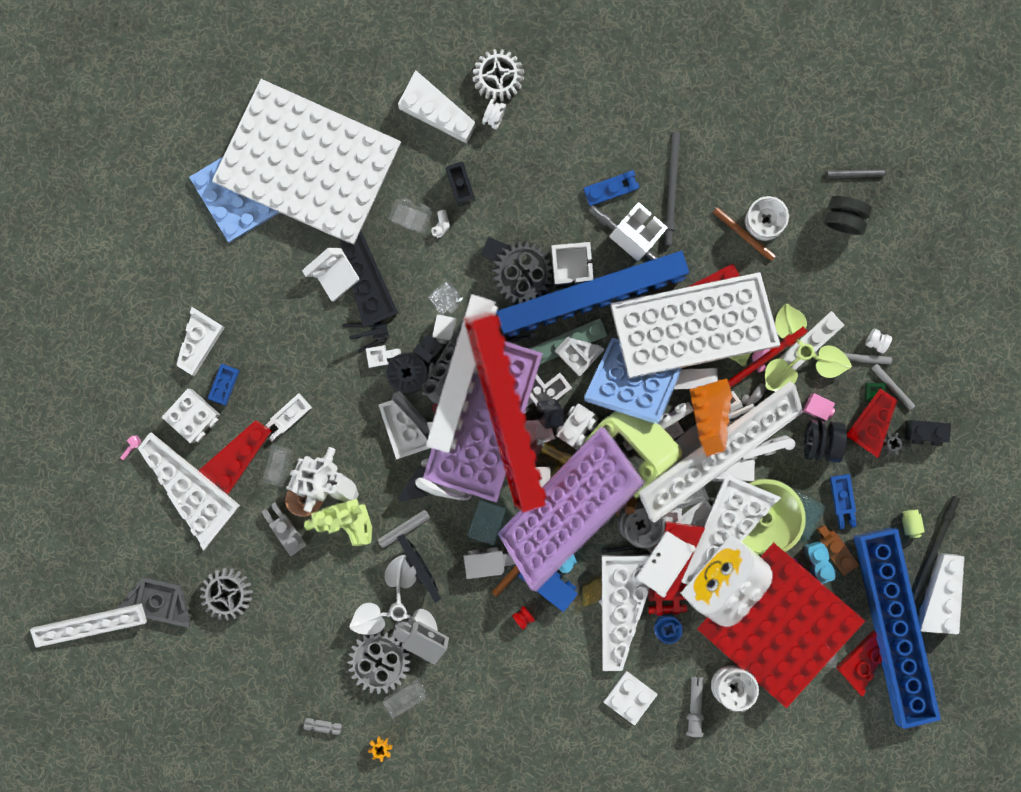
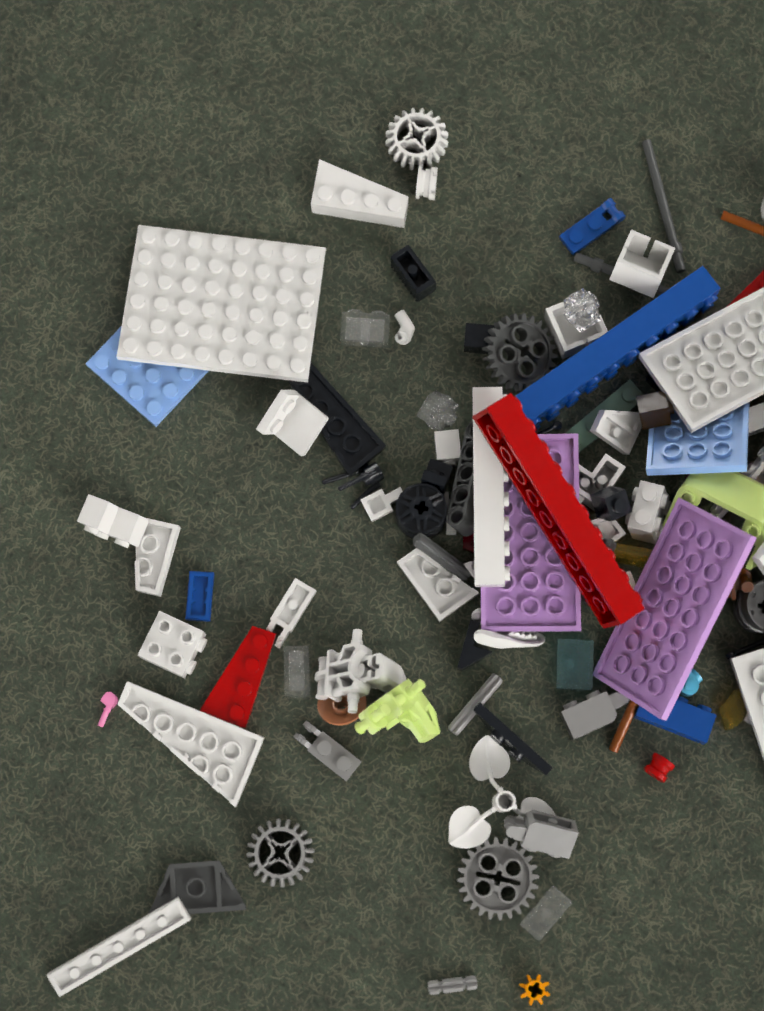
camera: 10 degrees left, 10 degrees down
(173, 308) = (108, 520): none -> white brick
(577, 256) = (582, 309): none -> clear brick
(608, 350) = (654, 410): none -> dark brown brick

